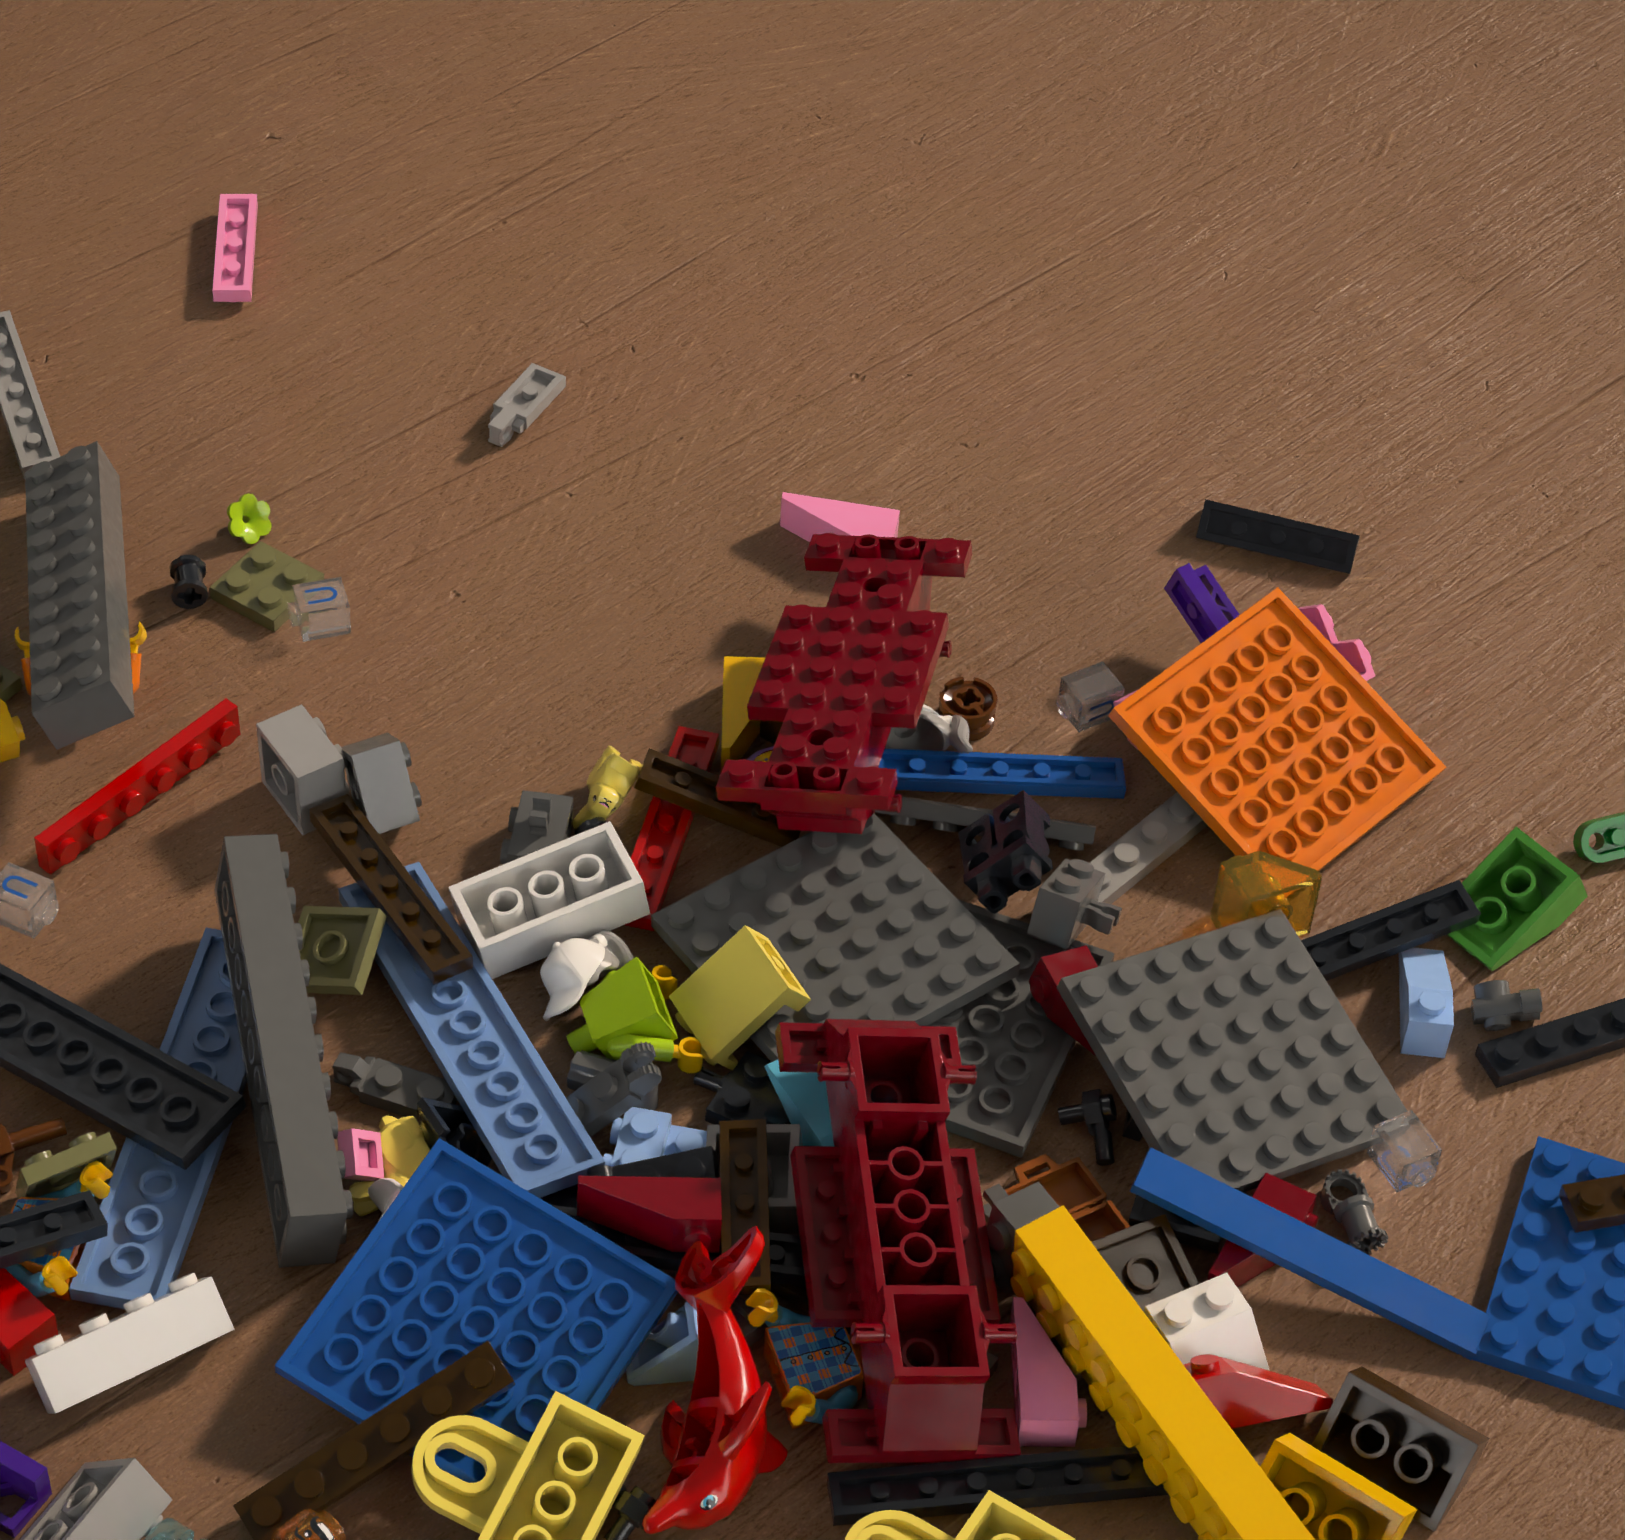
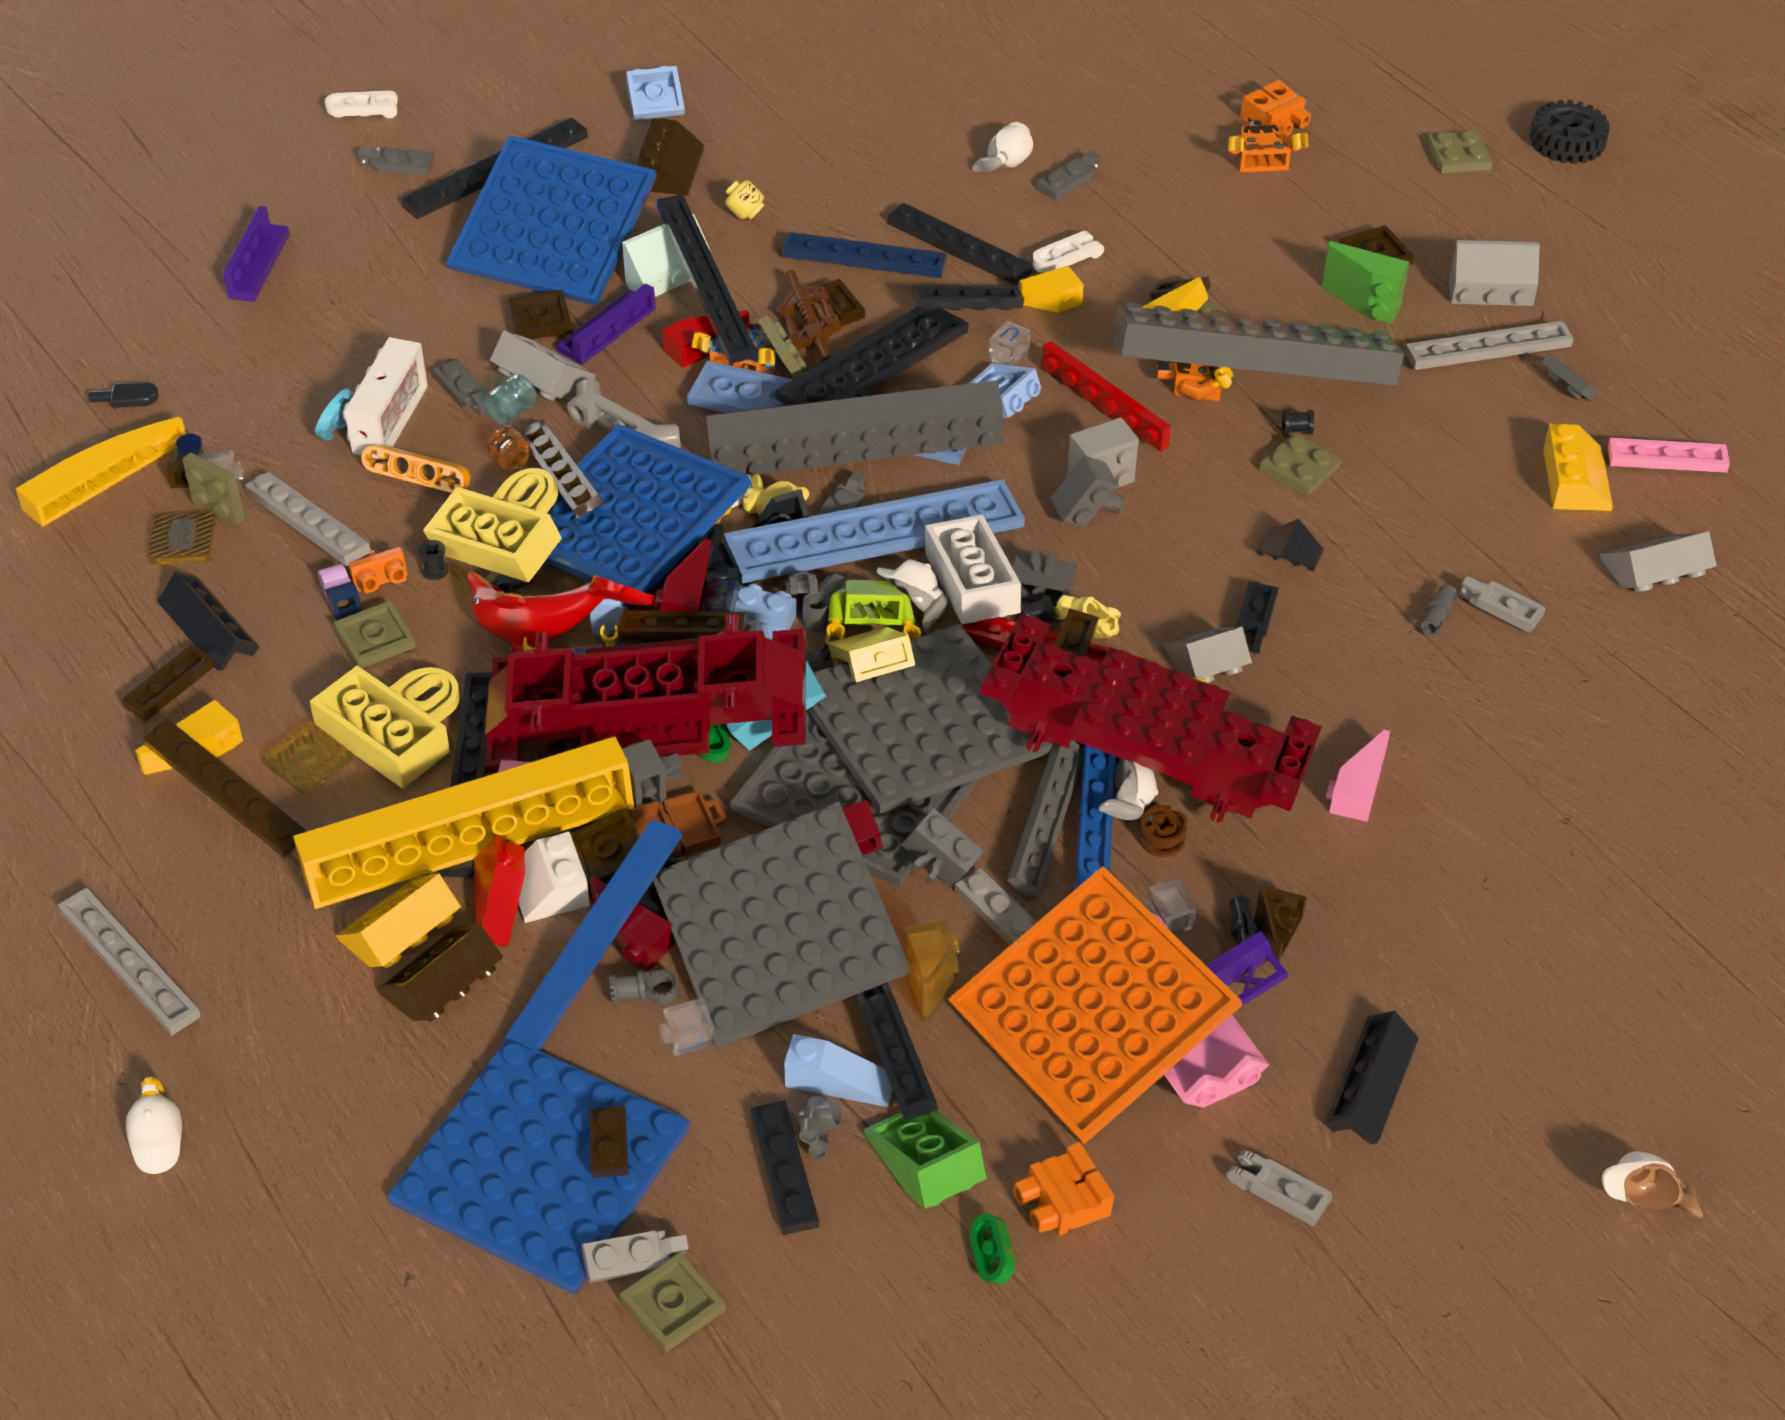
camera: 100 degrees right, 0 degrees up
(75, 329) = (1561, 372): none -> dark grey plate
(129, 1344) = (660, 379): white brick -> none
(130, 902) = (1015, 385): none -> light blue plate
(194, 1443) = (592, 408): none -> light grey plate
(249, 518) = (1361, 451): lime plant -> none
(271, 331) = (1576, 470): none -> yellow slope
(320, 609) = (1269, 484): clear brick -> none
(340, 947) = (946, 471): olive plate -> none
(362, 1154) = (769, 468): bright pink plate -> none
(391, 889) = (987, 493): dark brown plate -> none
(431, 265) = (1661, 560): none -> light grey slope
(441, 596) = (1293, 543): none -> black slope
(543, 458) = (1439, 610): none -> dark grey pin
(577, 626) = (1257, 611): none -> black hinge
(653, 668) = (1210, 653): none -> light grey slope
(1009, 853) = (987, 810): black hips -> none
(1093, 605) = (1279, 917): none -> dark brown slope
(1101, 635) = (1243, 923): none -> black pin
(1352, 333) = (1649, 1182): none -> medium nougat hair
(1448, 605) = (1280, 1187): none -> light grey hinge
(1519, 778) = (1066, 1192): none -> orange hips

